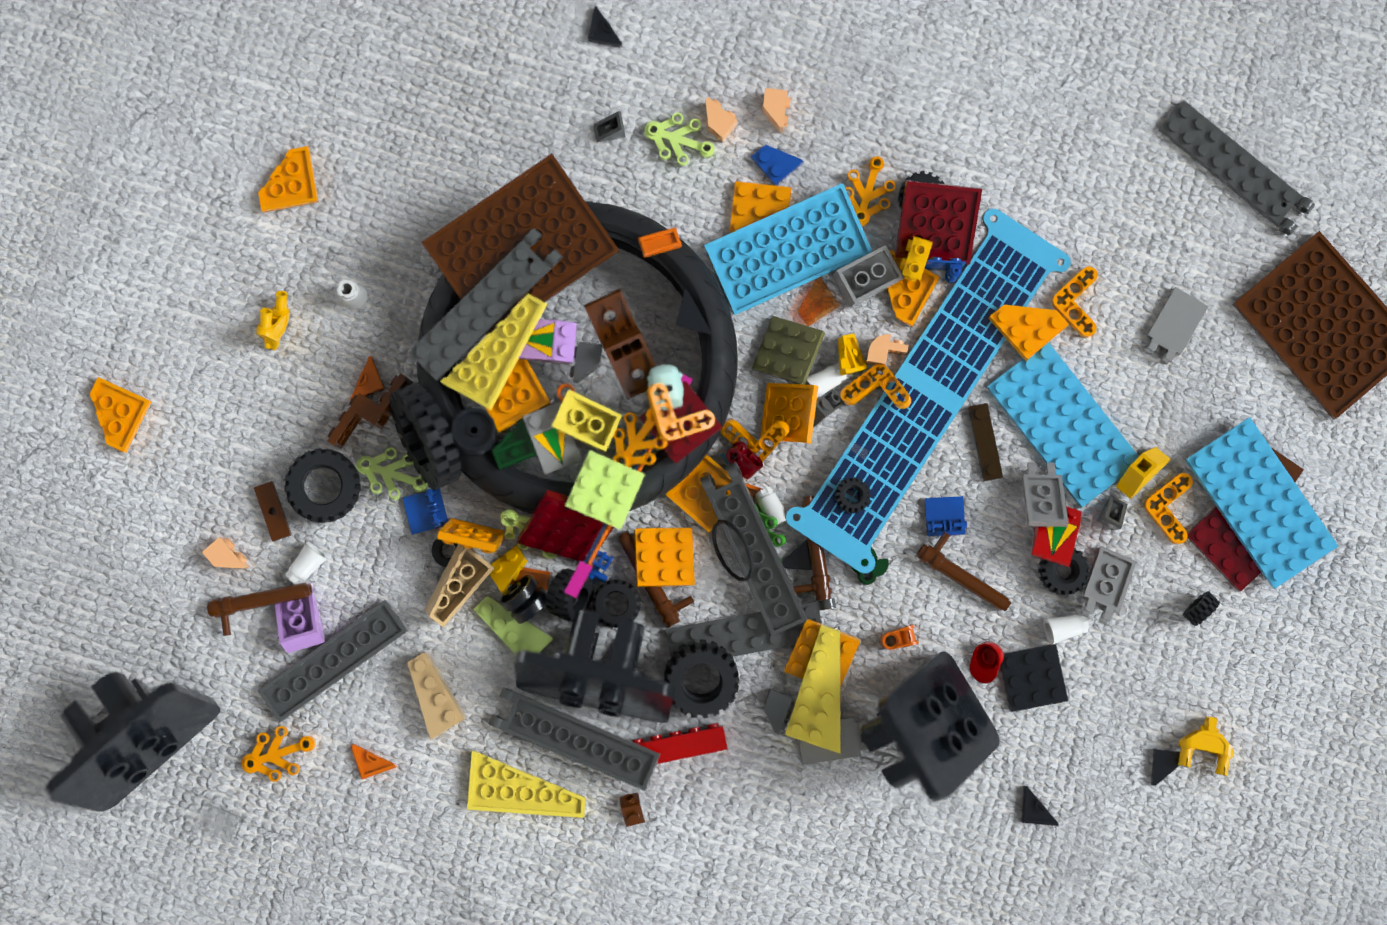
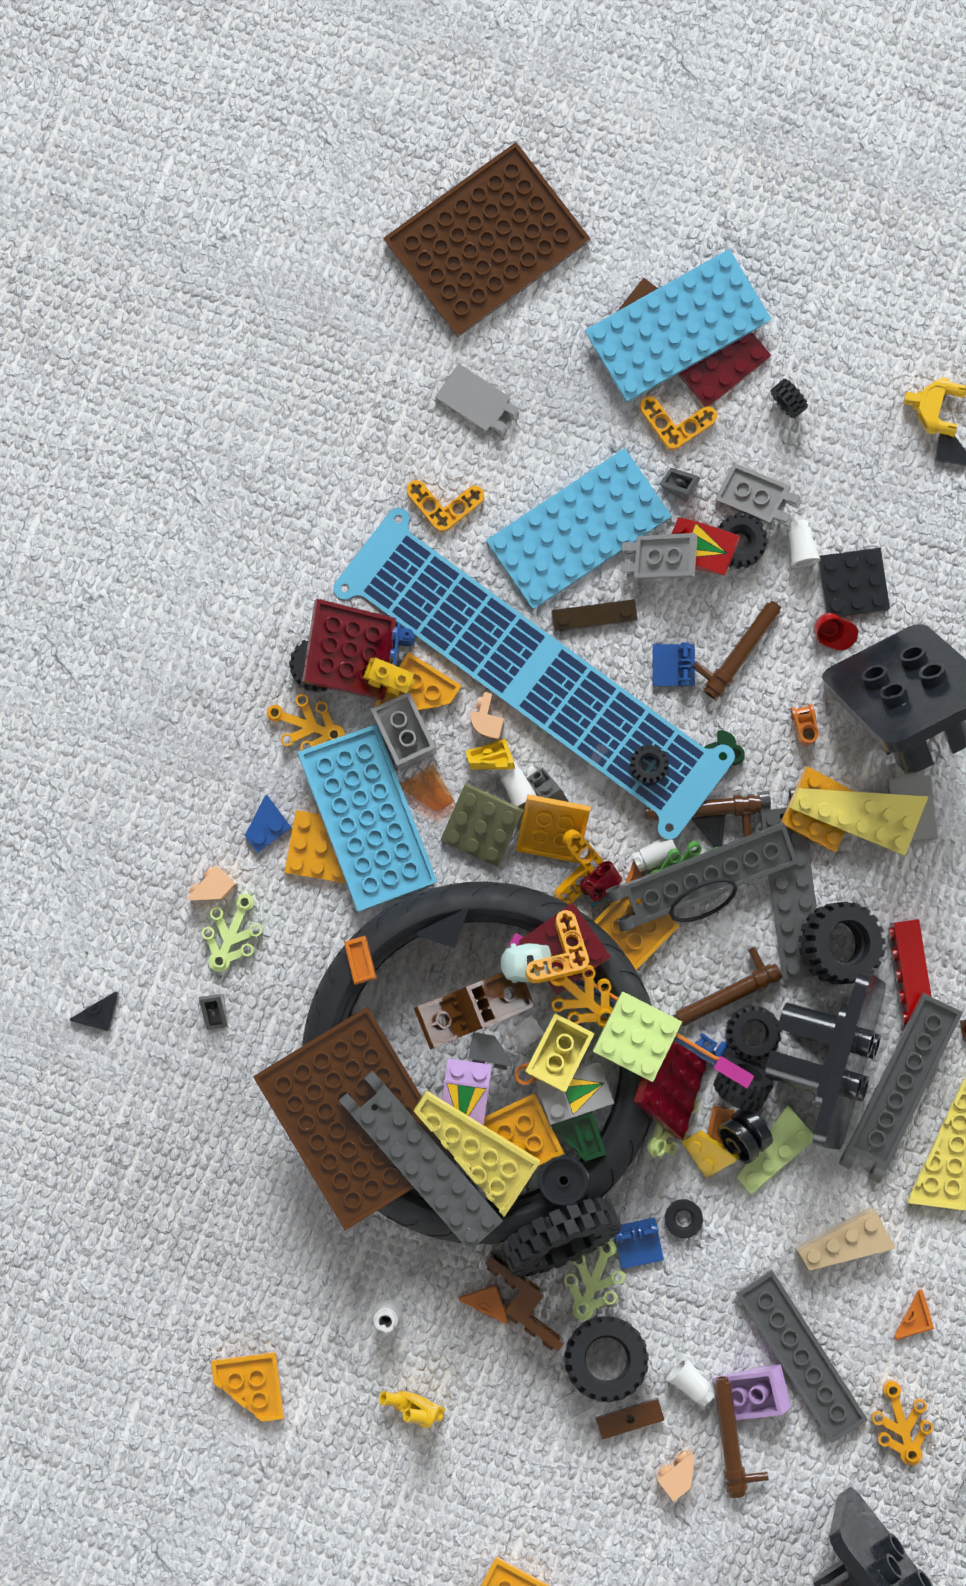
camera: 85 degrees left, 0 degrees up
(458, 582) = (723, 1209): tan wedge -> none
(471, 535) = (671, 1190): light orange plate -> none
(664, 557) = (704, 976): light orange plate -> none
(774, 107) = (203, 822): light nougat slope -> none
(776, 708) = (874, 862): dark grey slope -> none
(880, 380) = (522, 724): light orange beam -> none
(1028, 327) = (471, 559): light orange plate -> none
(1142, 471) = (636, 448): yellow slope -> none
(1234, 166) = (303, 322): dark grey hinge -> none

